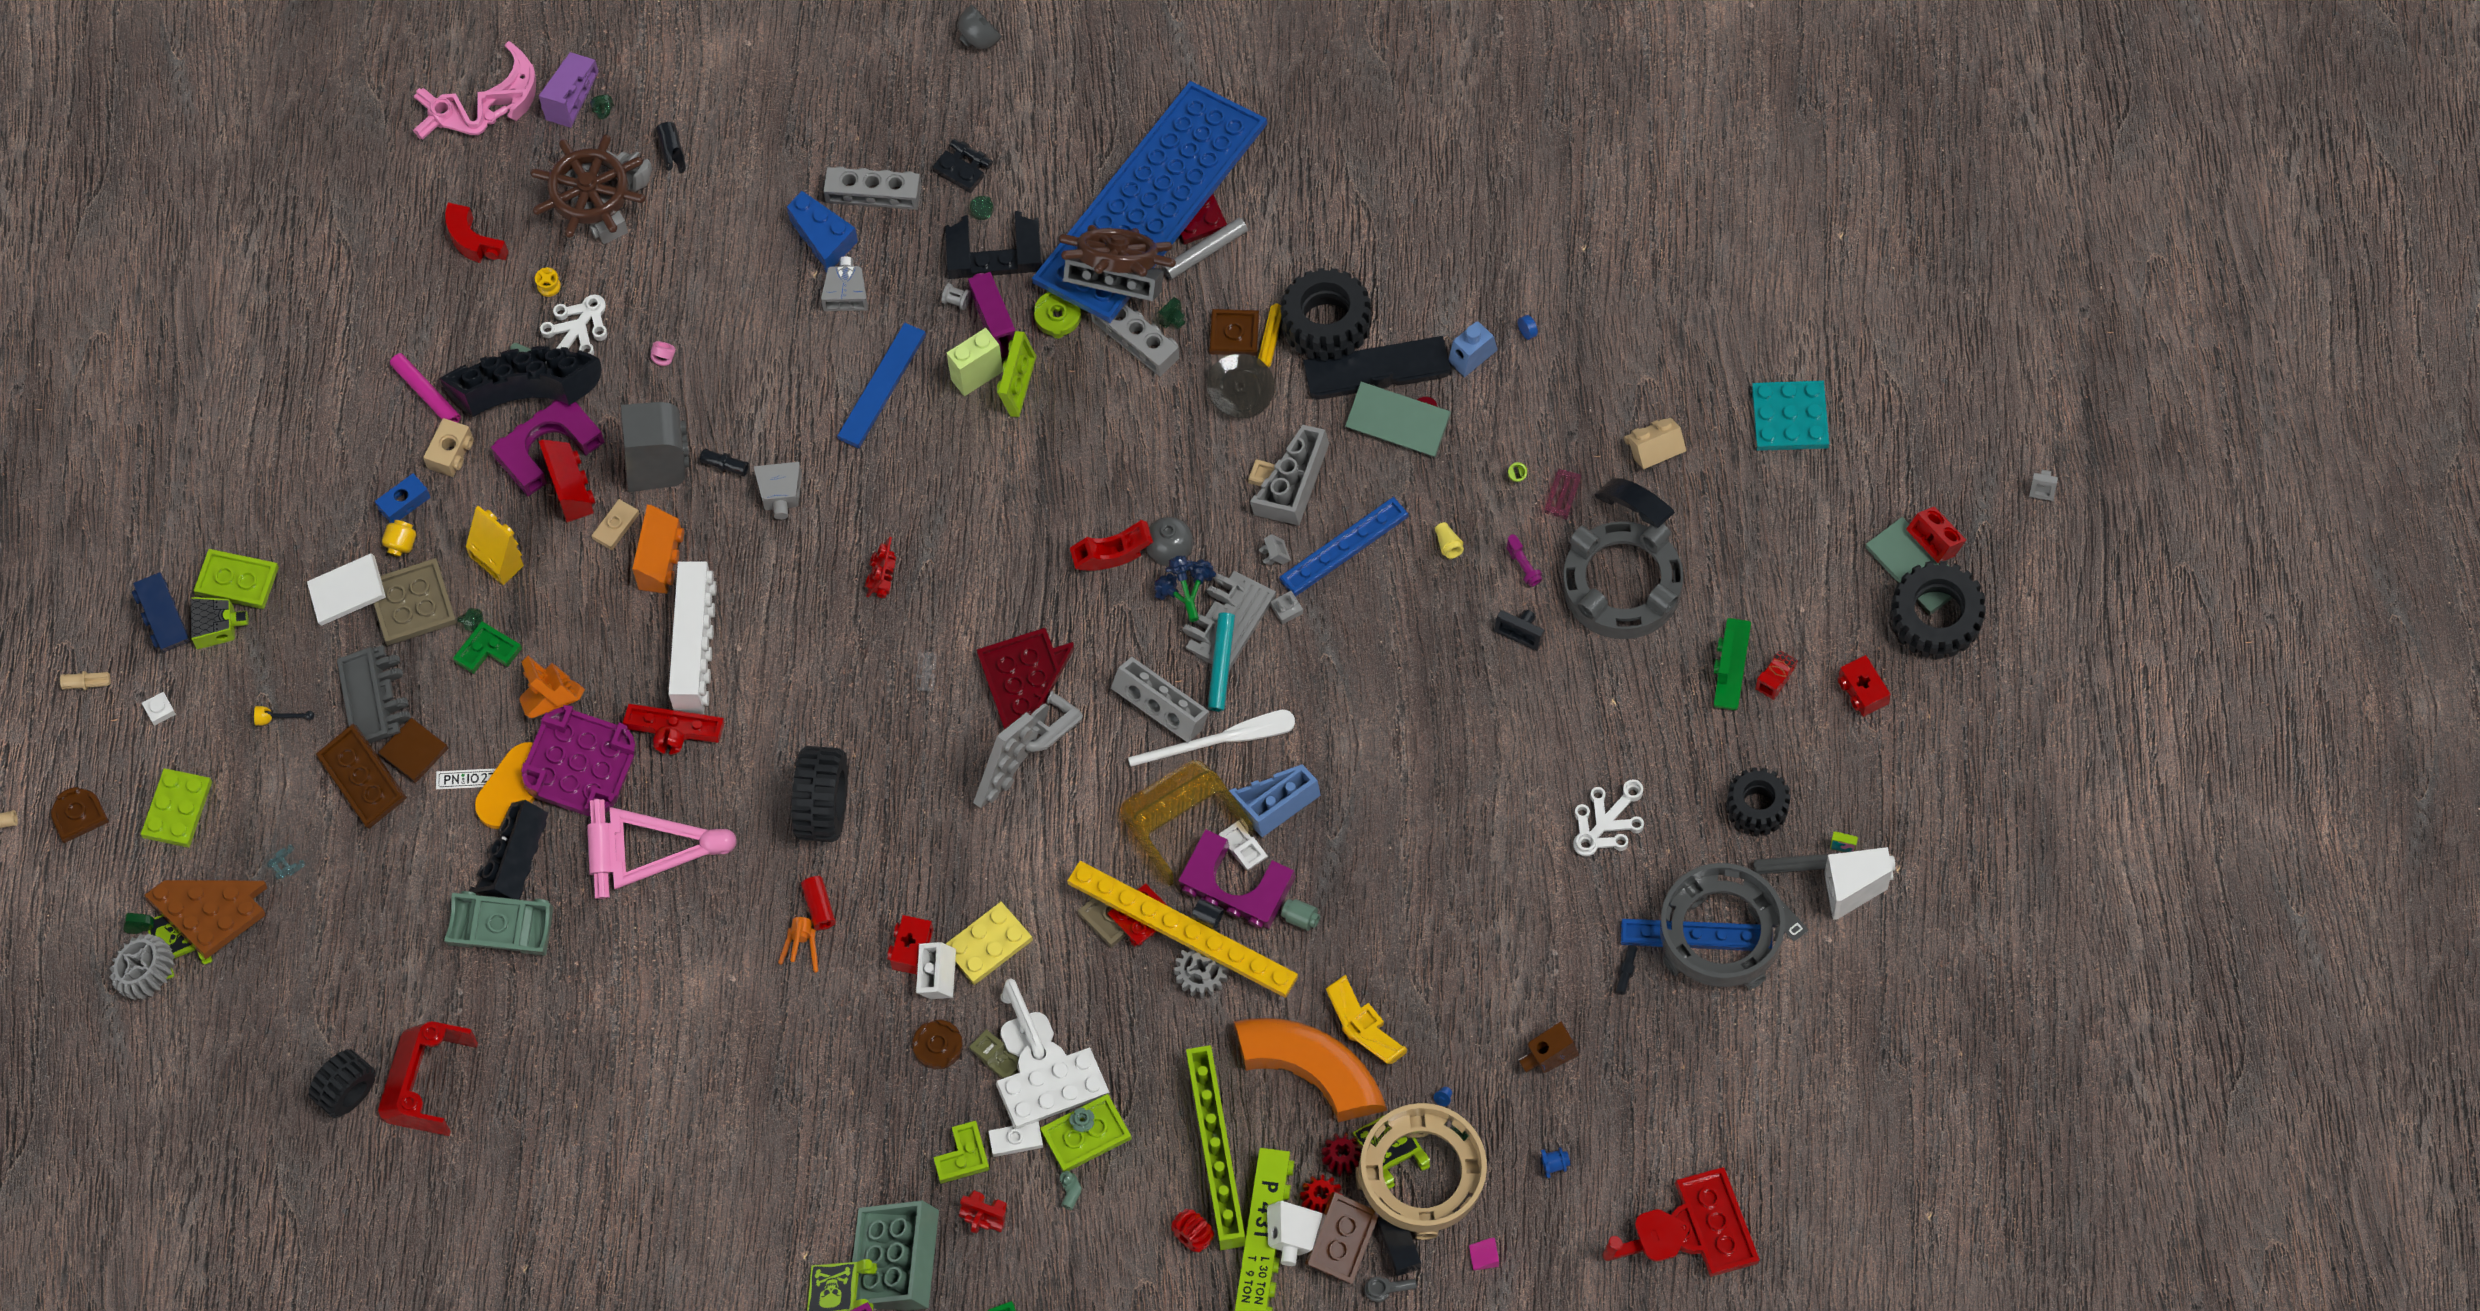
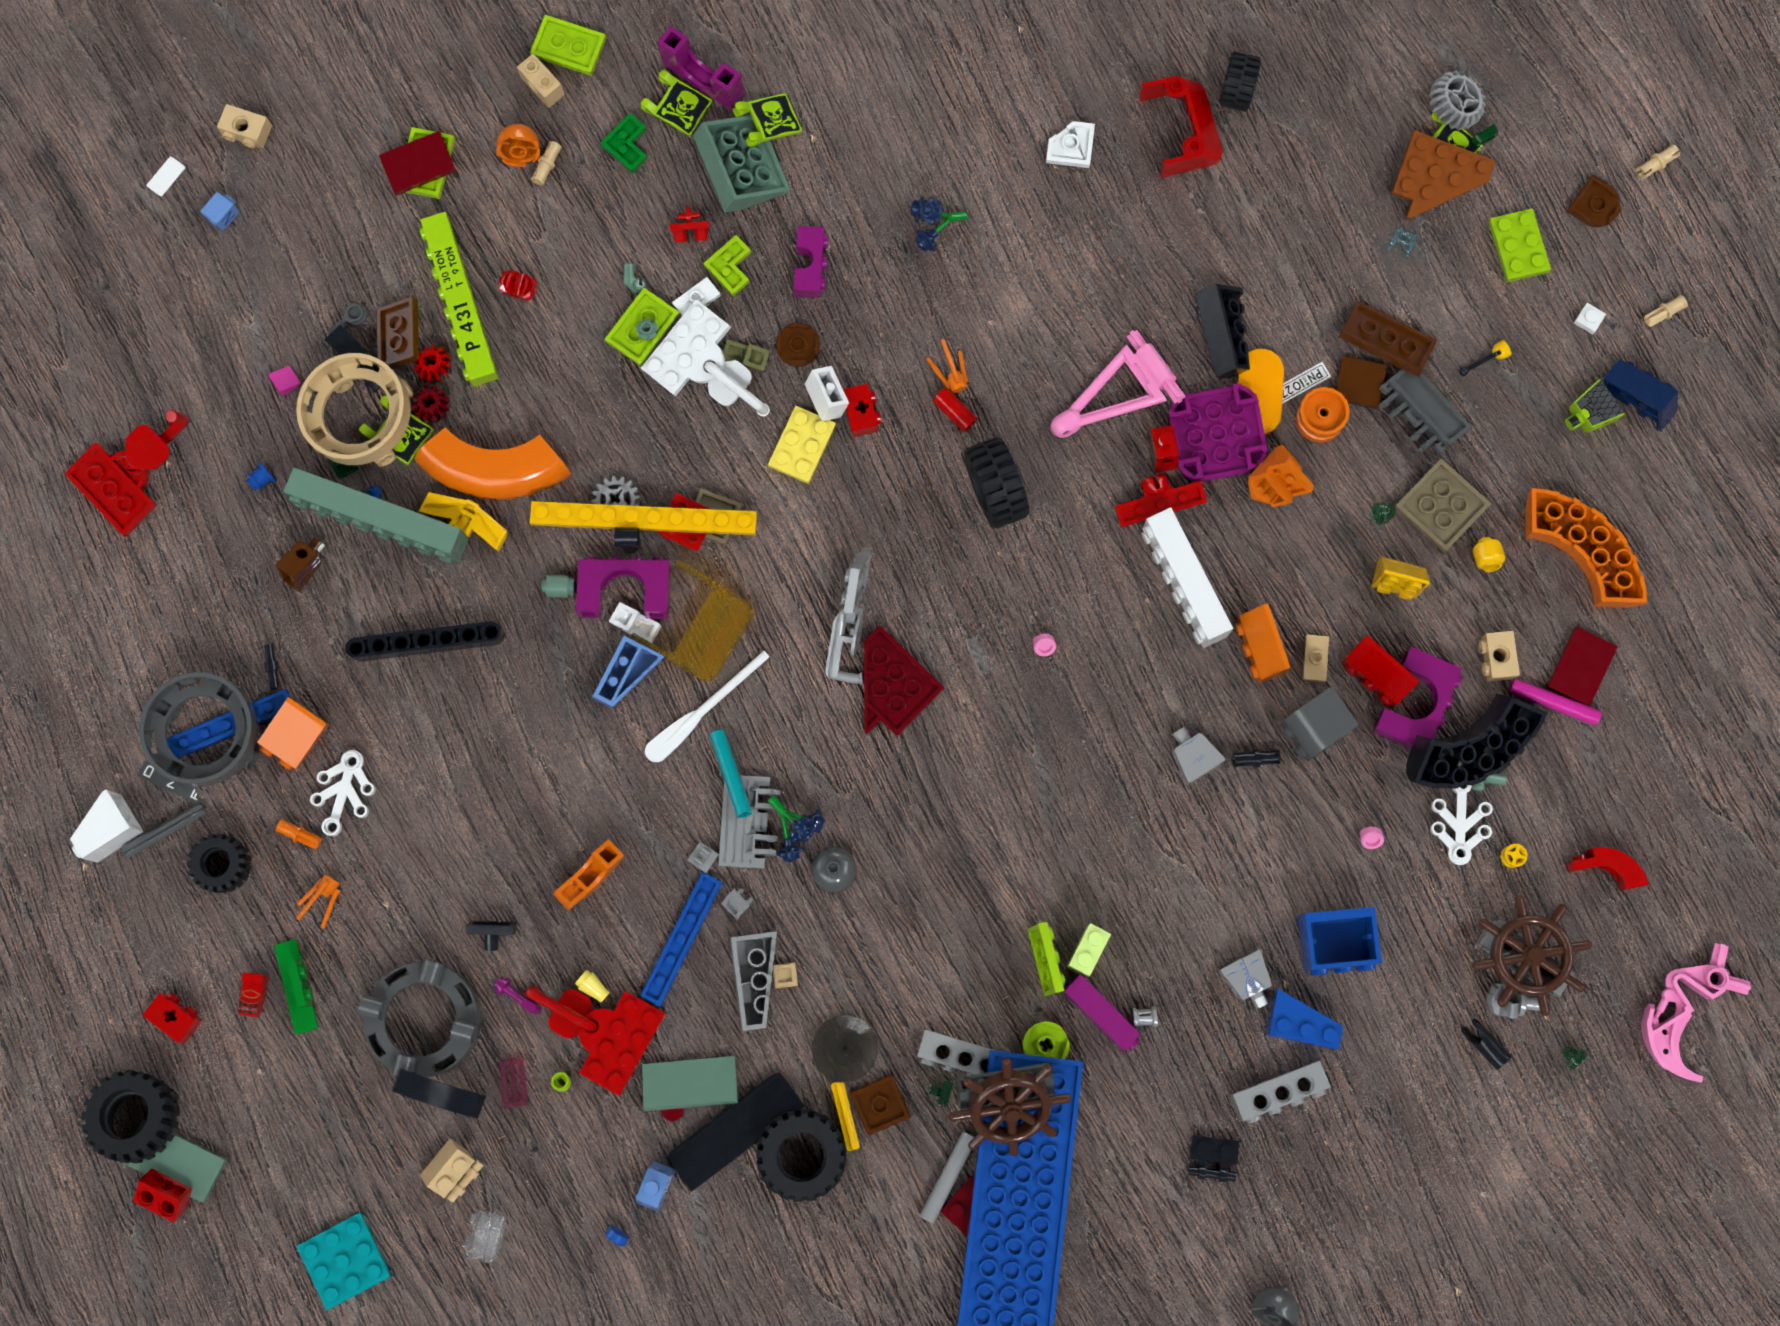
camera: 155 degrees right, 15 degrees up
(236, 578) = (1601, 455): lime plate -> none
(298, 500) = (1591, 542): none -> orange brick
(346, 589) = (1502, 487): white tile -> none
(380, 409) = (1582, 666): none -> dark red tile
(396, 510) = (1501, 602): blue piece -> none
(470, 729) = (1325, 402): none -> orange wheel
(486, 642) = (1358, 499): green plate -> none
(499, 923) = (1198, 268): sand green piece -> none
(546, 1112) = (1072, 145): none -> white plate
(568, 89) = (1615, 1058): medium lavender wedge -> none
(638, 767) = (1162, 447): none -> red torso
(731, 1087) = (930, 212): none -> dark blue plant
(746, 276) = (1339, 941): none -> blue container
(859, 646) = (1044, 644): none -> bright pink tile
(881, 385) = (1163, 900): blue tile -> none
(883, 567) = (1063, 710): red hinge -> none
(887, 1098) = (809, 280): none -> magenta arch
(966, 264) = (1106, 1087): black wedge -> none
(981, 207) = (1172, 1122): clear green tile -> none
(1112, 551) = (877, 834): red arch -> none
(1159, 699) = (764, 713): light grey brick -> none
(1215, 1147) = (531, 359): lime brick -> none
(1292, 1230) = (436, 316): white torso -> none
(1402, 635) = (590, 875): none -> orange arch
(1451, 1058) = (376, 516): none -> sand green brick
(1452, 483) = (616, 1043): none -> red plate
(1467, 930) = (414, 639): none -> black beam
(1629, 886) = (292, 734): none -> orange slope
(1648, 376) = (485, 1235): none -> clear brick
(1662, 736) = (325, 887): none -> orange plant
(1669, 799) = (298, 834): none -> orange axle
(1843, 842) = (134, 862): tile -> none
(2043, 485) = (86, 1295): light grey tile -> none

